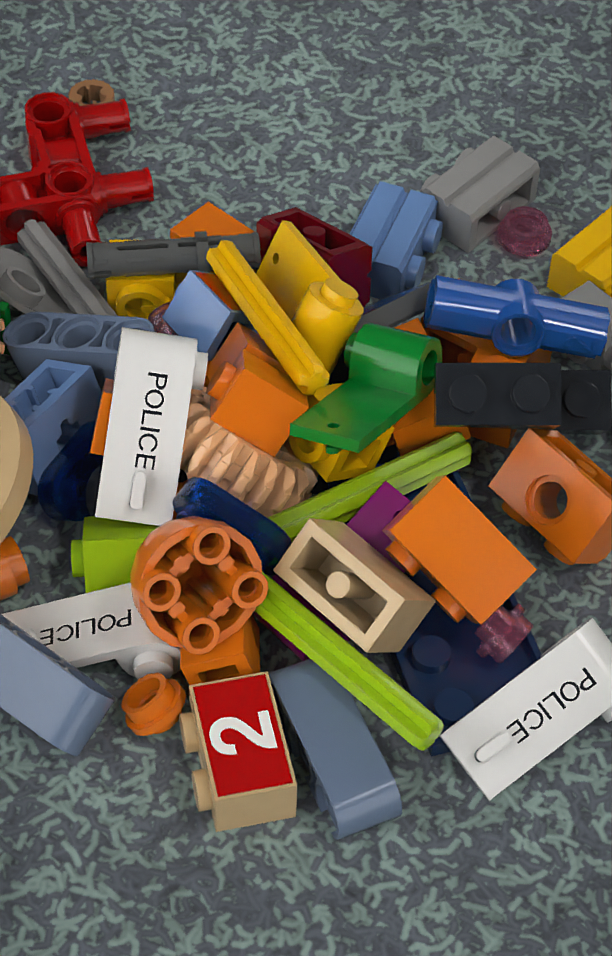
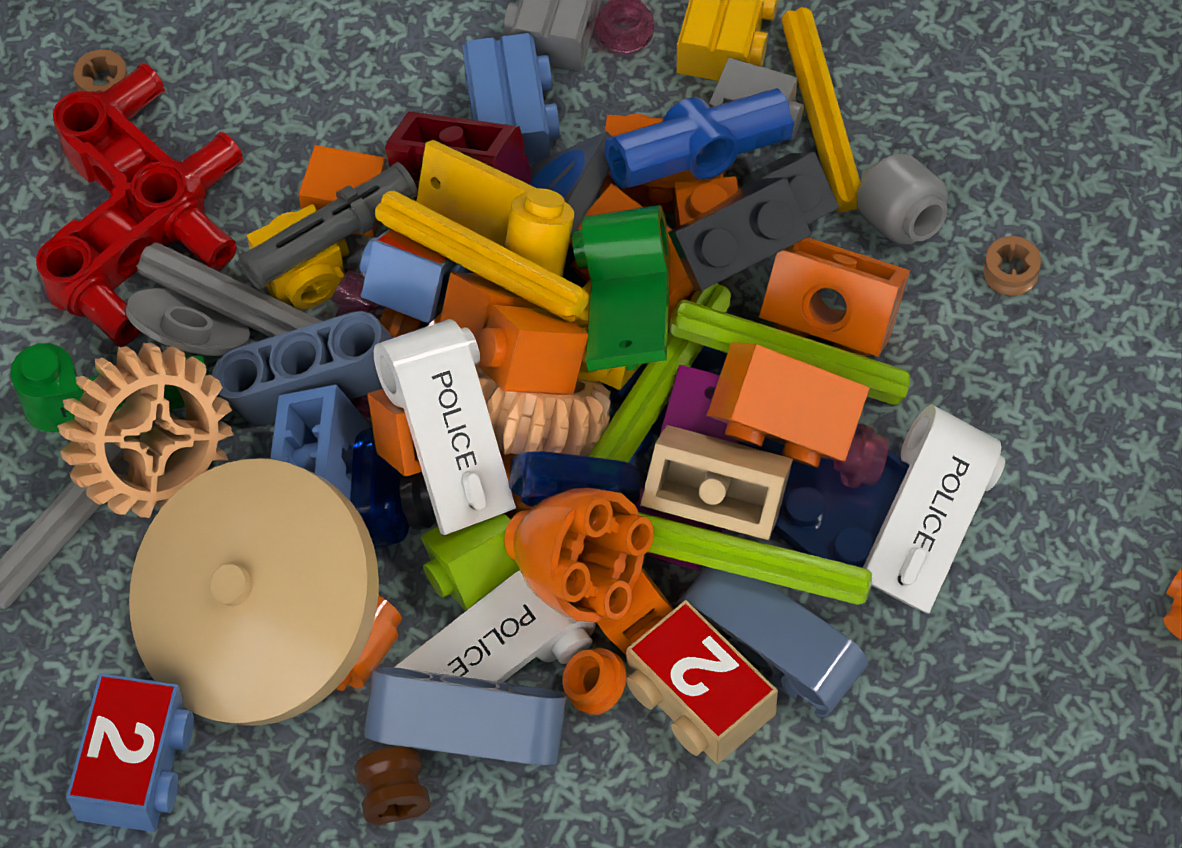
camera: 25 degrees left, 10 degrees up
(552, 575) = (719, 329): none -> lime axle

